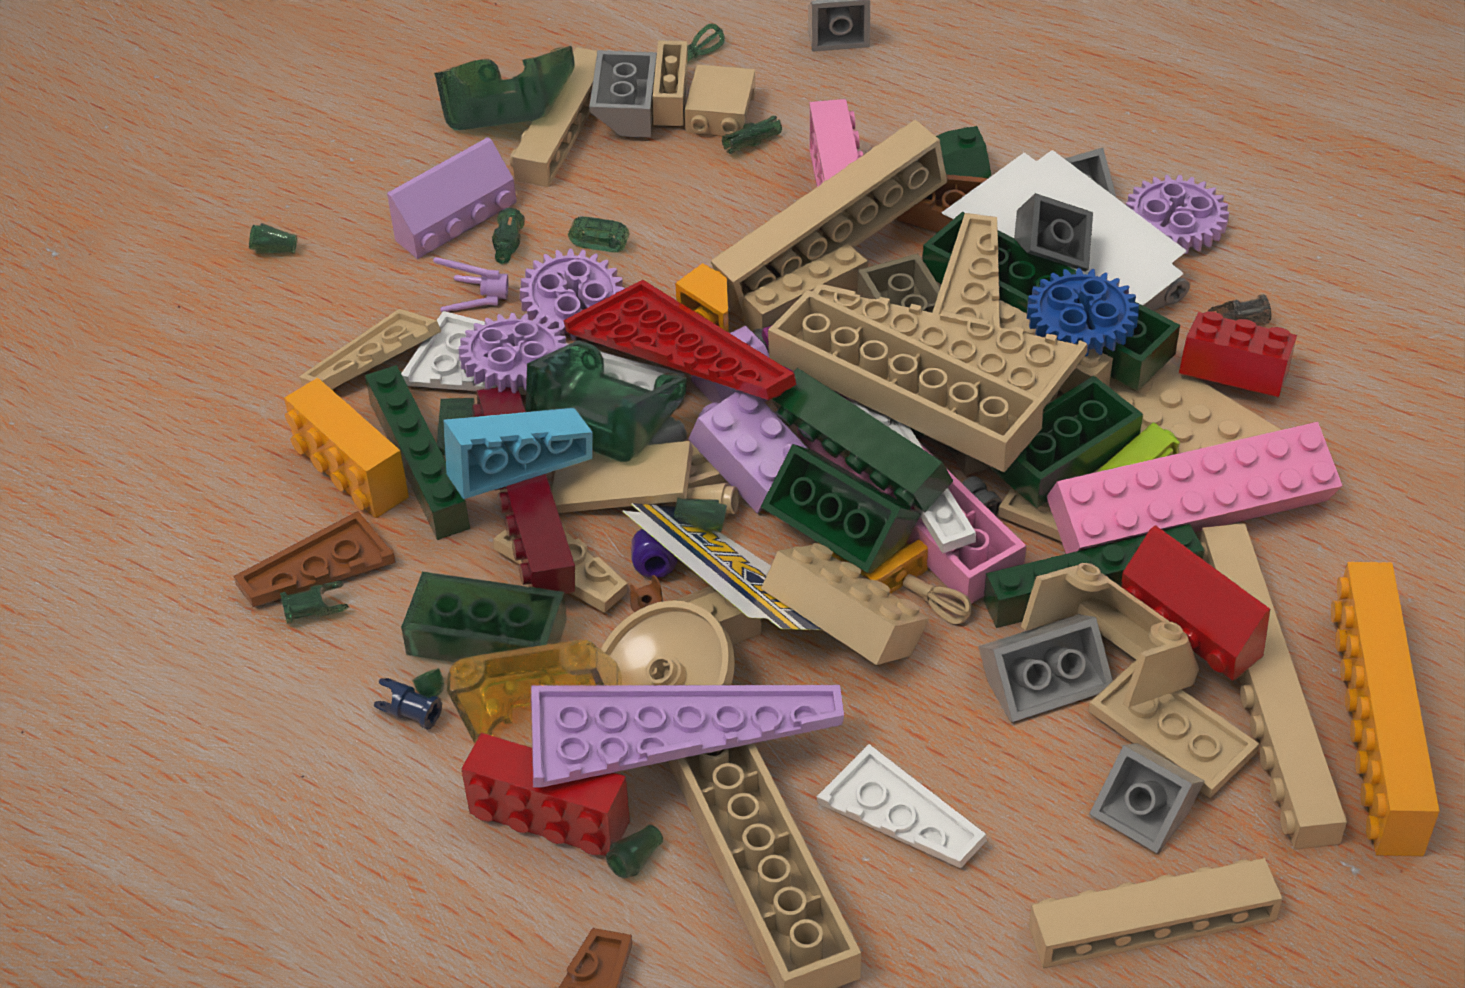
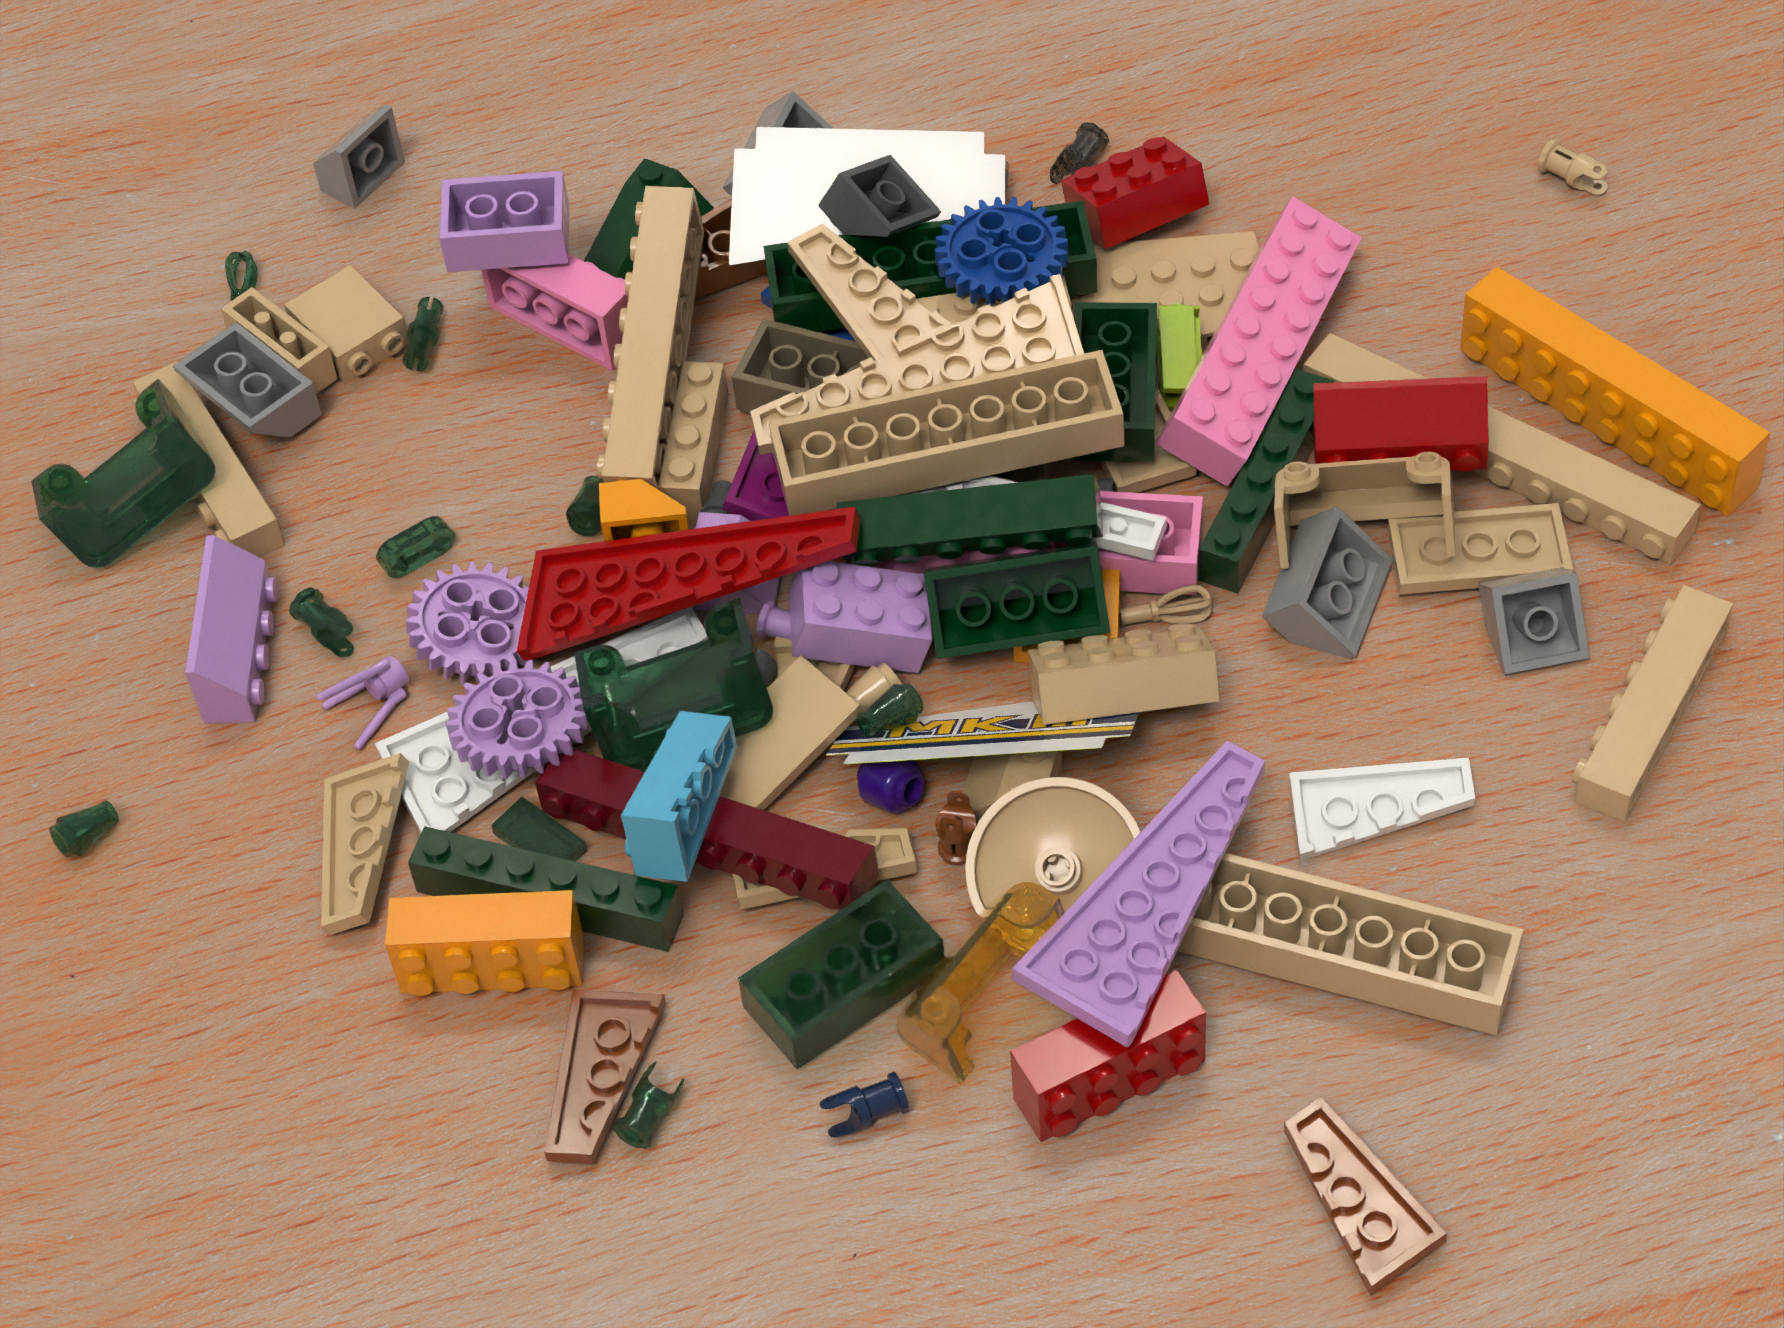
camera: 45 degrees left, 5 degrees up
(429, 683) = (857, 1069): clear green hinge -> none
(632, 852) = (1226, 1038): clear green cone -> none
(832, 90) = (504, 221): none -> lavender brick
(1181, 210) = (938, 98): lavender gear -> none

